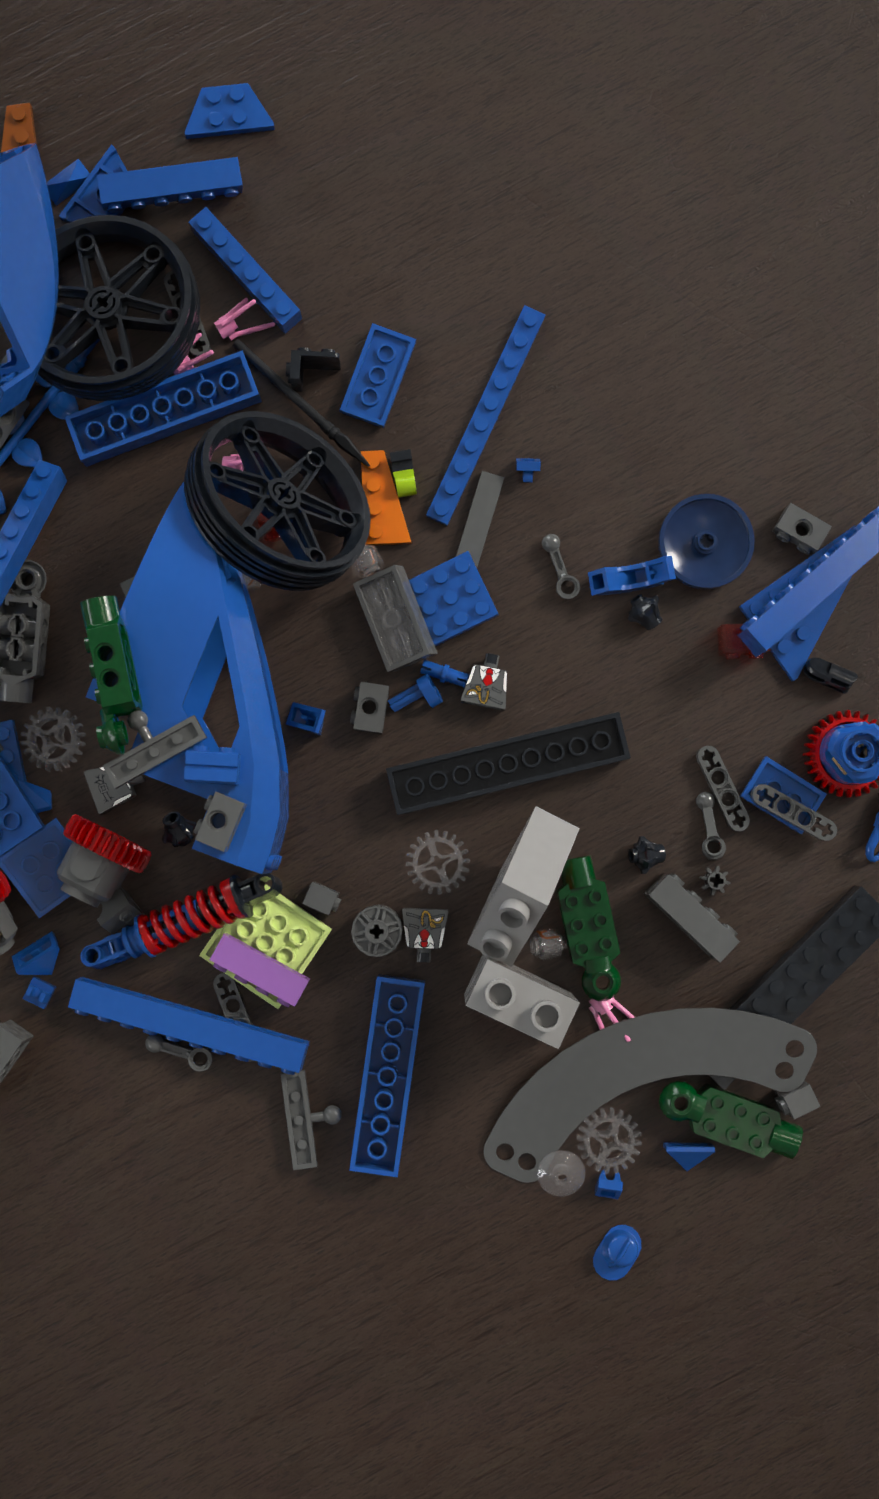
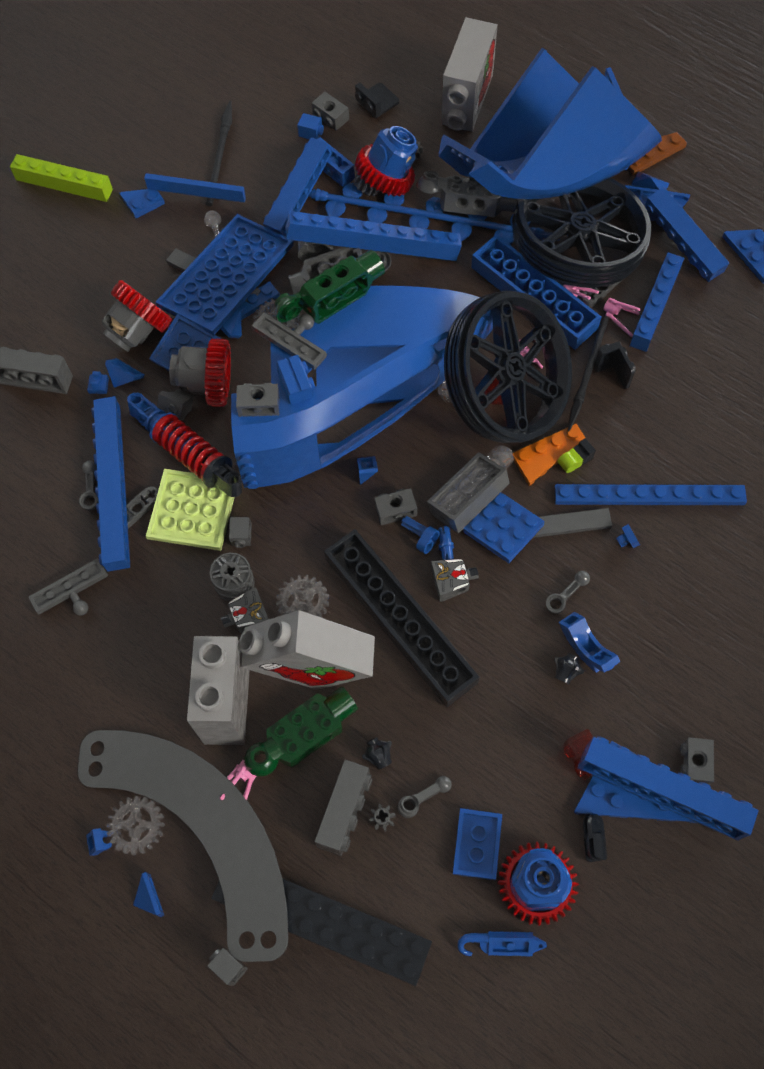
camera: 70 degrees right, 20 degrees down
(104, 793) = (257, 366): torso -> none
(259, 969) = (169, 509): medium lavender brick -> none
(378, 375) = (635, 412): blue plate -> none
(387, 1075) = (123, 631): blue brick -> none
(547, 944) = (273, 707): clear head -> none
(561, 1163) = (103, 800): clear dish -> none
(617, 1252) = (45, 875): blue piece -> none
(707, 540) = (647, 689): dark blue dish -> none
(719, 790) = (462, 794): dark grey beam -> none
(732, 1119) = (189, 920): dark green brick -> none
(795, 809) = (470, 856): dark grey beam -> none

